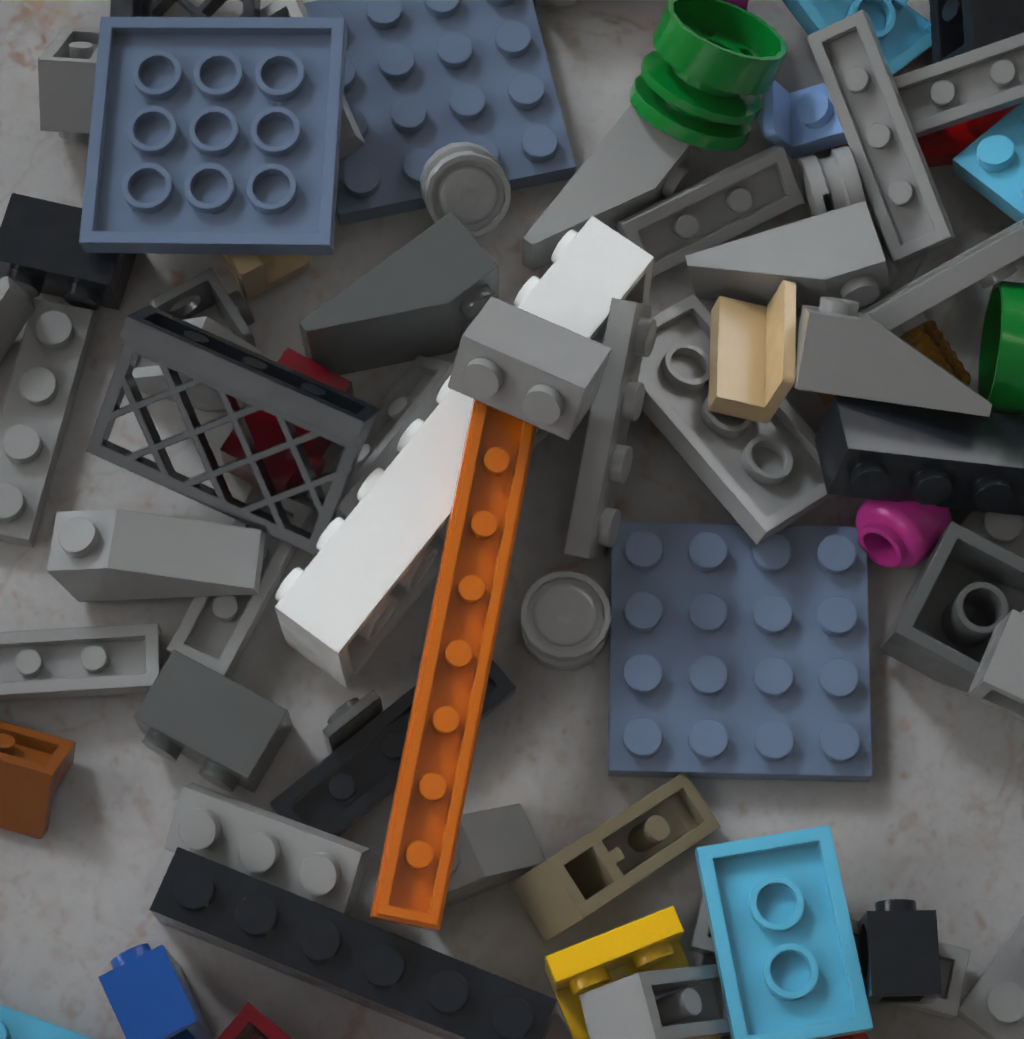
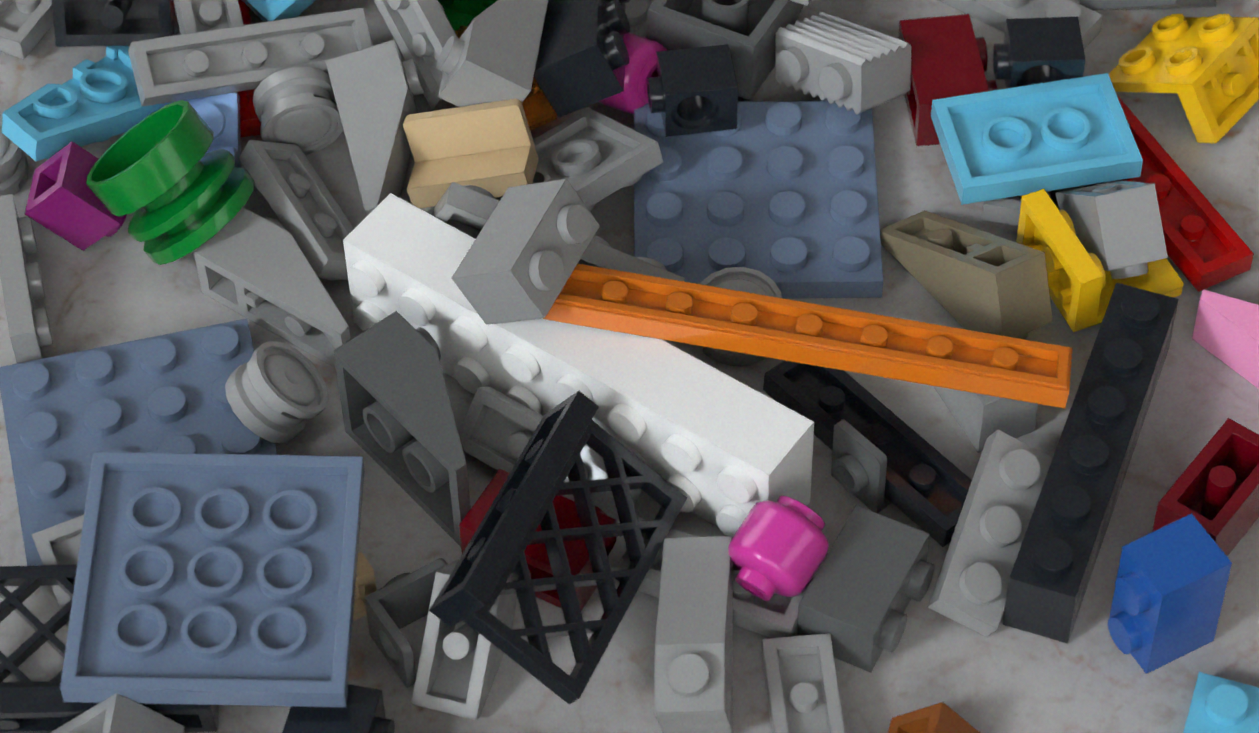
camera: 90 degrees left, 20 degrees down
(232, 630) = (778, 548): none -> dark pink head
(847, 574) = (694, 90): none -> black brick
(903, 737) = (842, 62): none -> light grey brick
(905, 856) = (944, 64): none -> dark red brick

